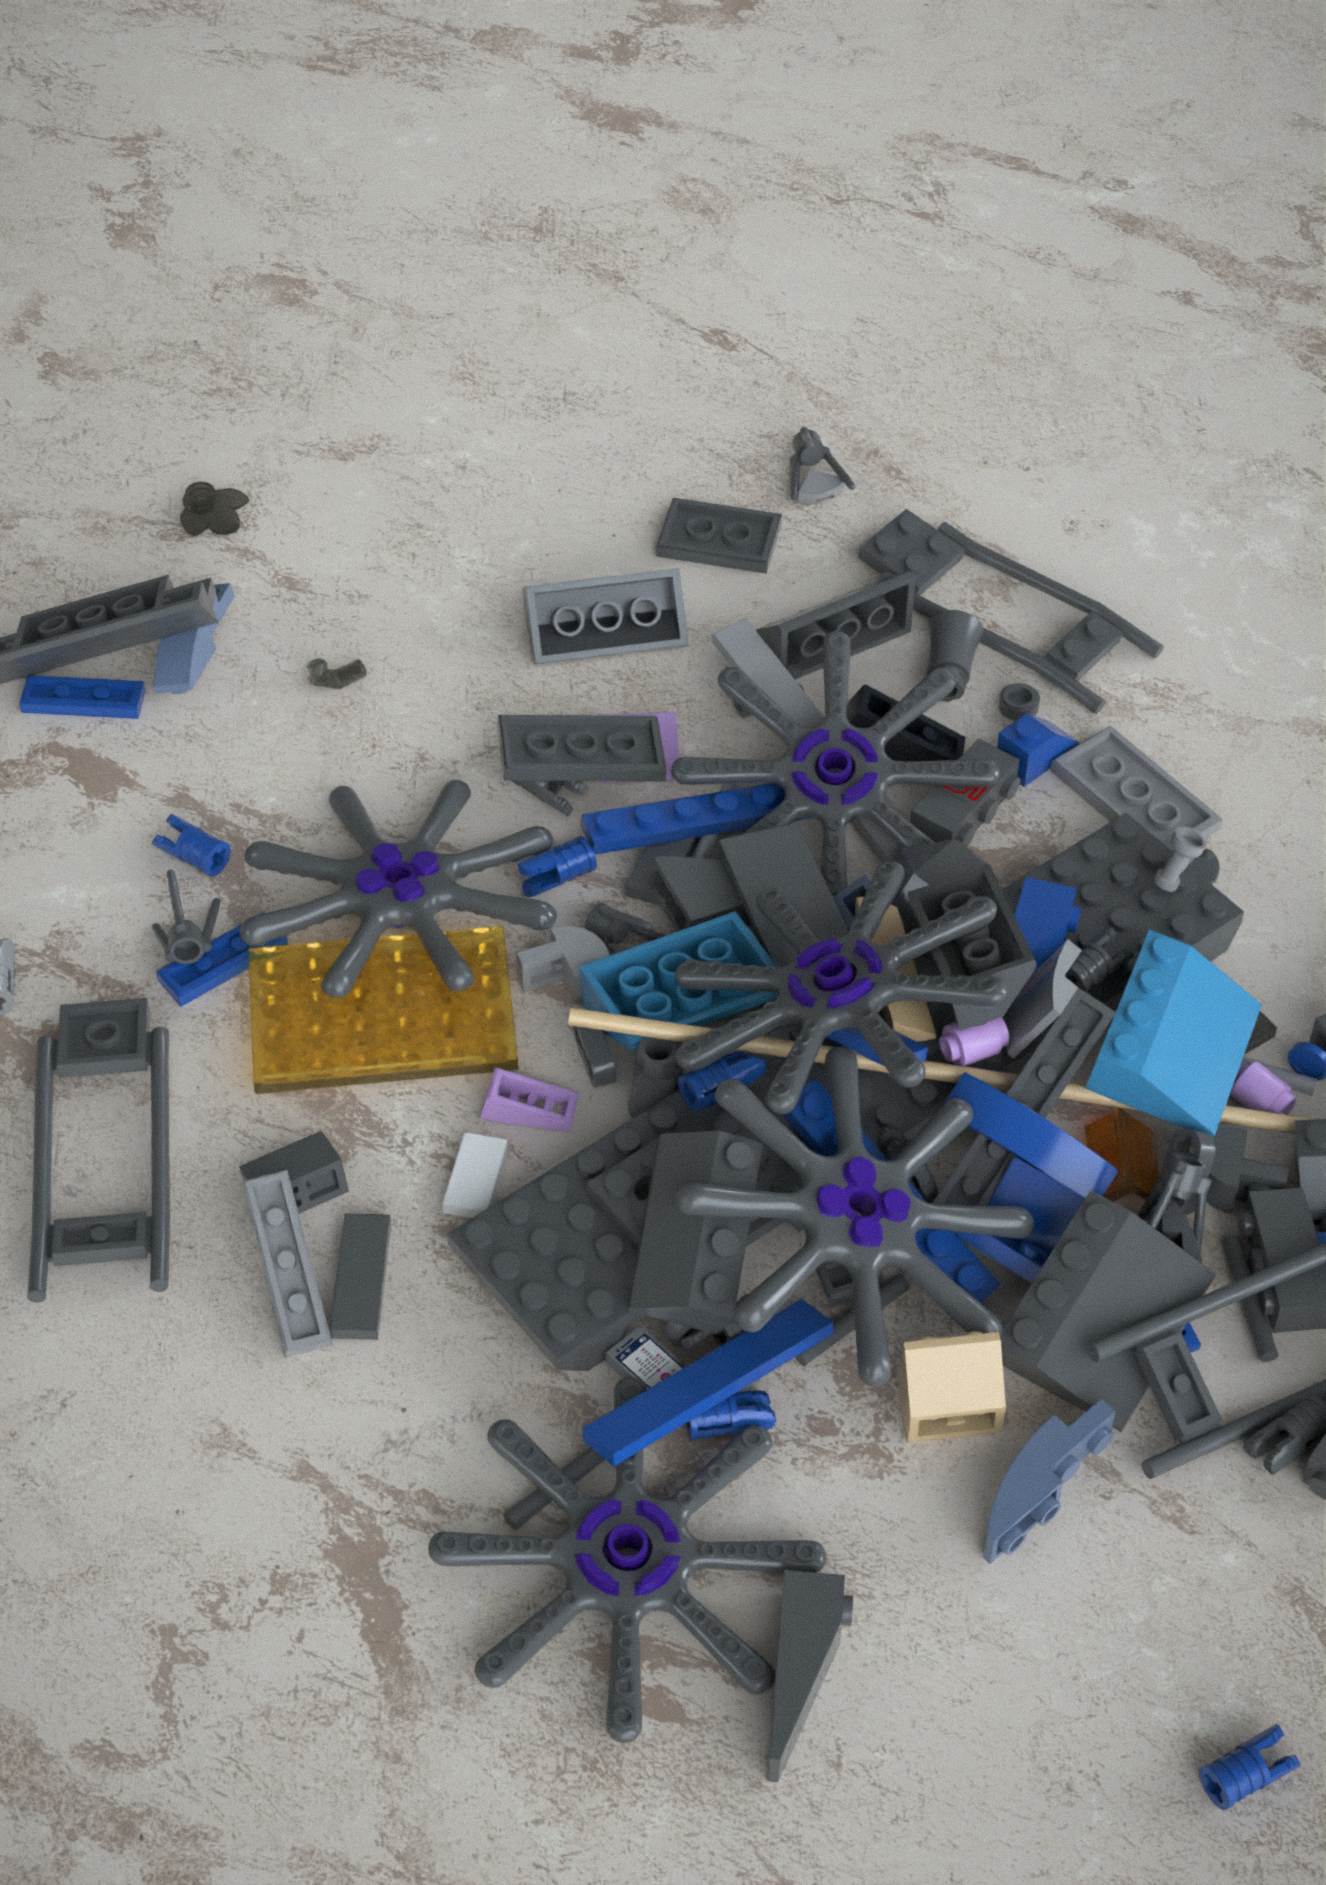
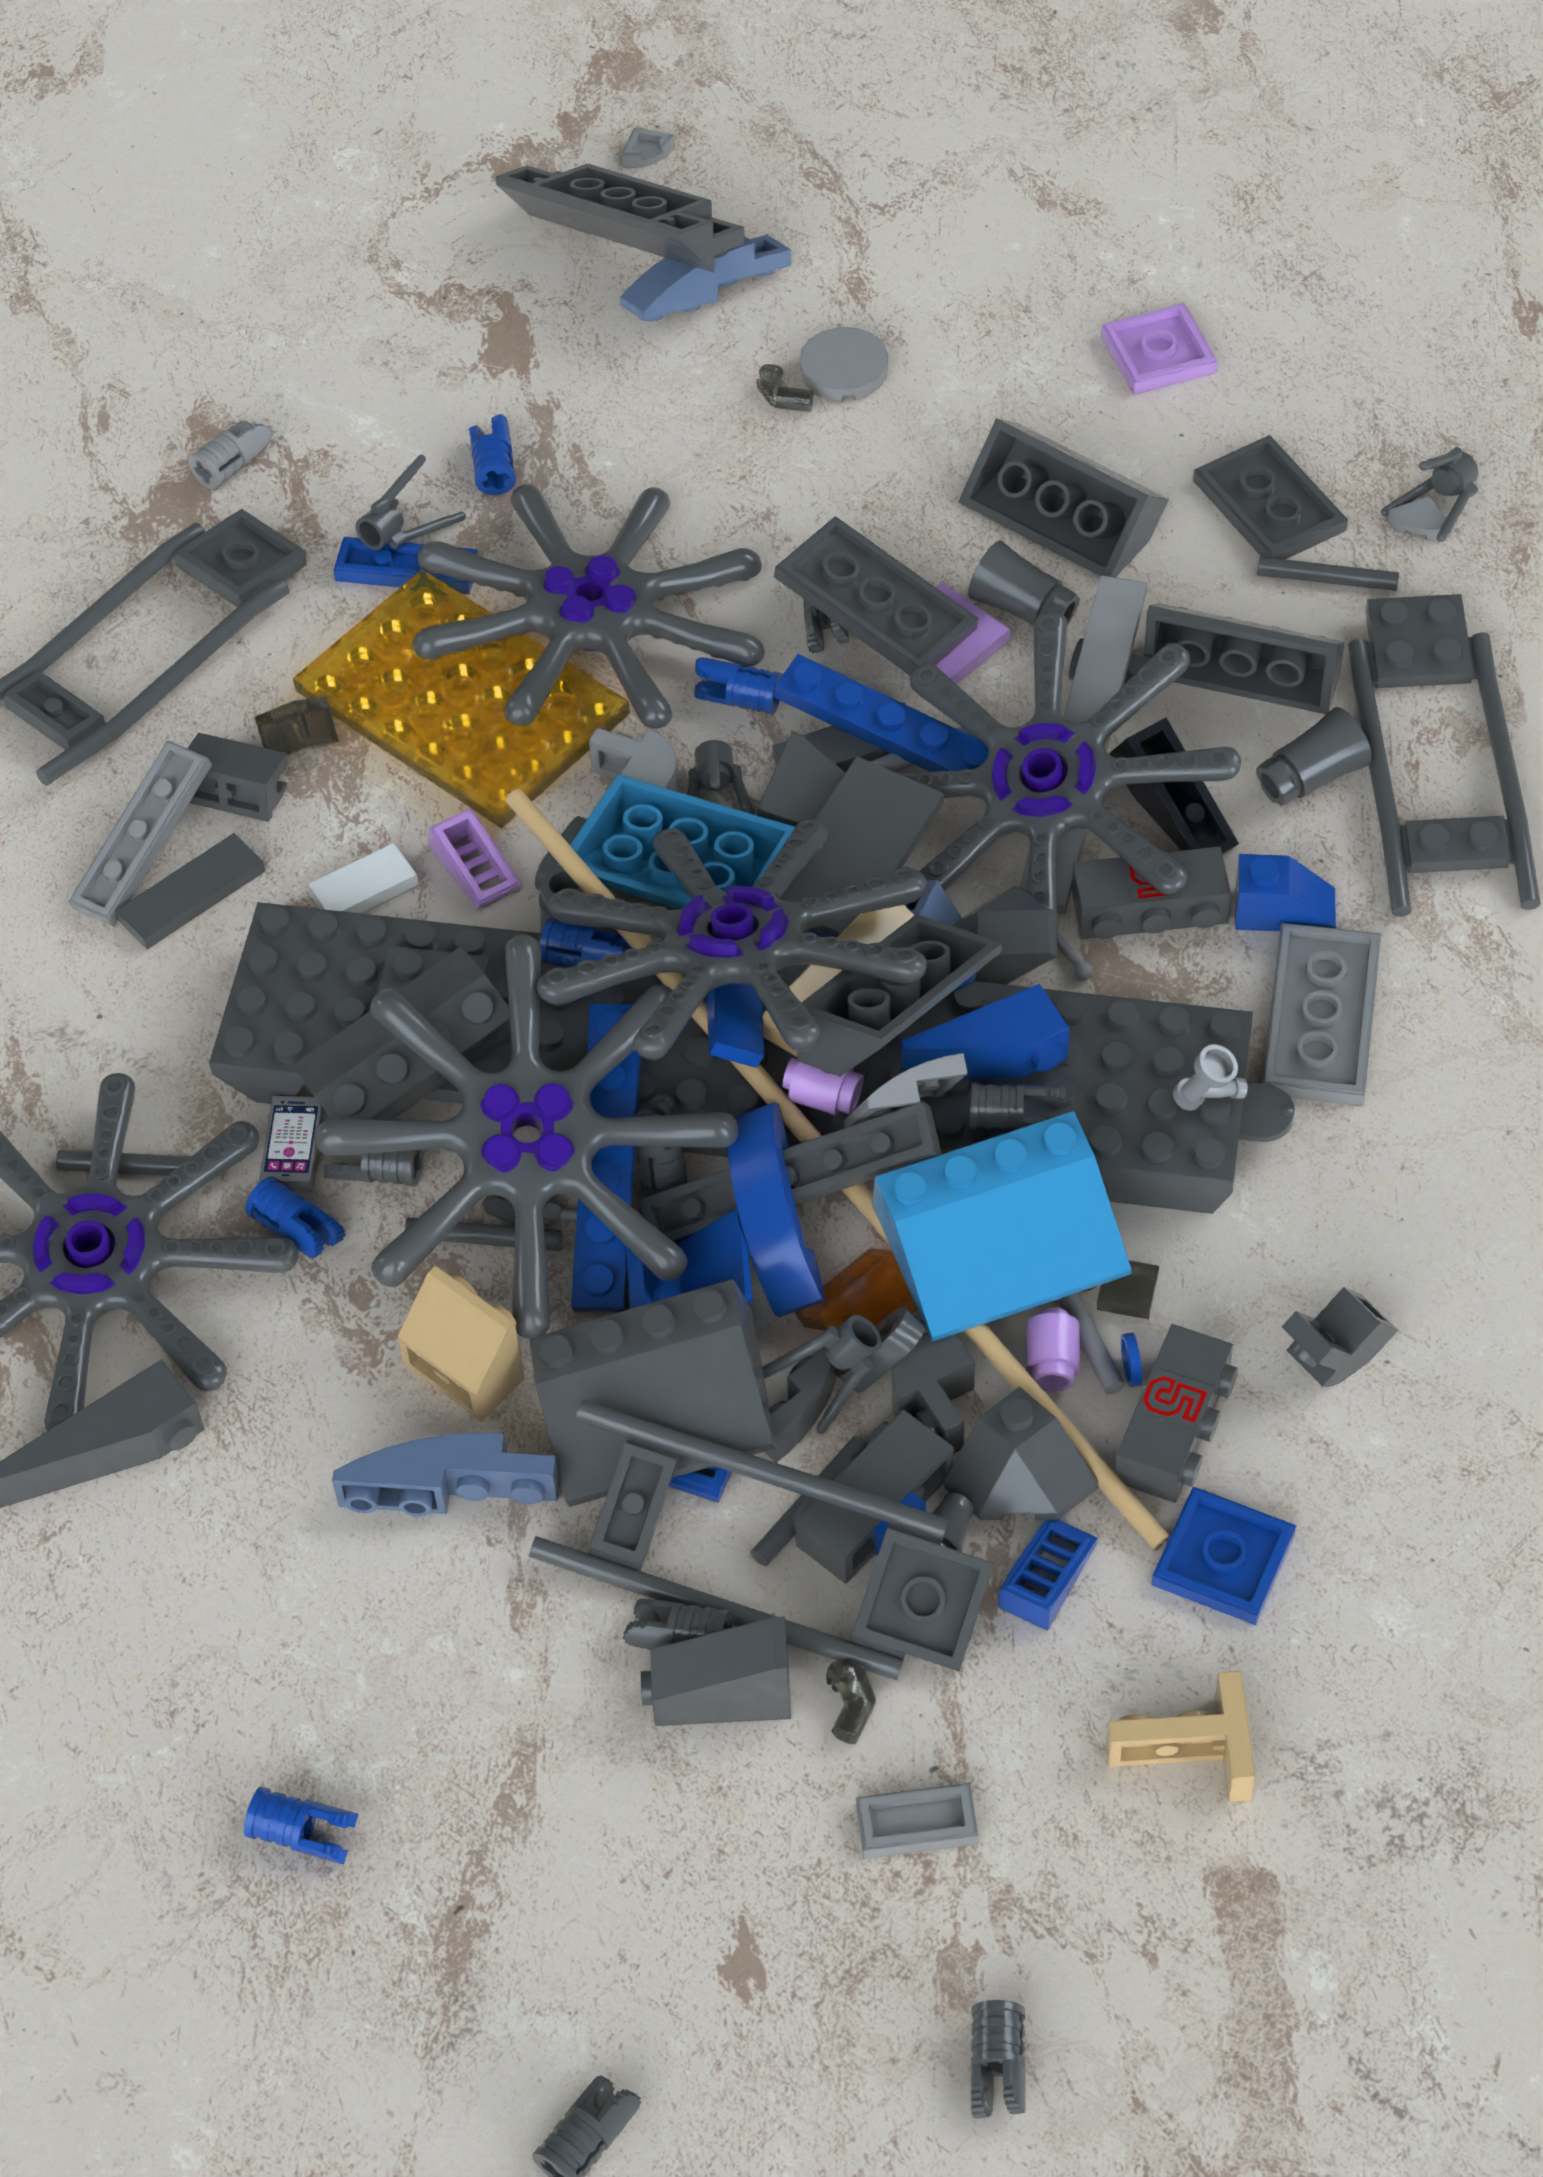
camera: 50 degrees right, 5 degrees up
(28, 589) = (646, 148): none -> light grey tile
(82, 697) = (572, 270): blue tile -> none
(211, 509) = (868, 175): clear smoke plate -> none
(297, 1112) = (297, 726): none -> clear smoke panel
(351, 631) = (844, 363): none -> light grey tile
(536, 494) = (1159, 349): none -> lavender tile
(656, 682) = (1018, 586): none -> dark grey plant
(706, 1382) = (288, 1174): blue tile -> none
(808, 553) = (1328, 573): none -> dark grey bar
(1018, 700) = (1332, 850): dark grey tile -> none

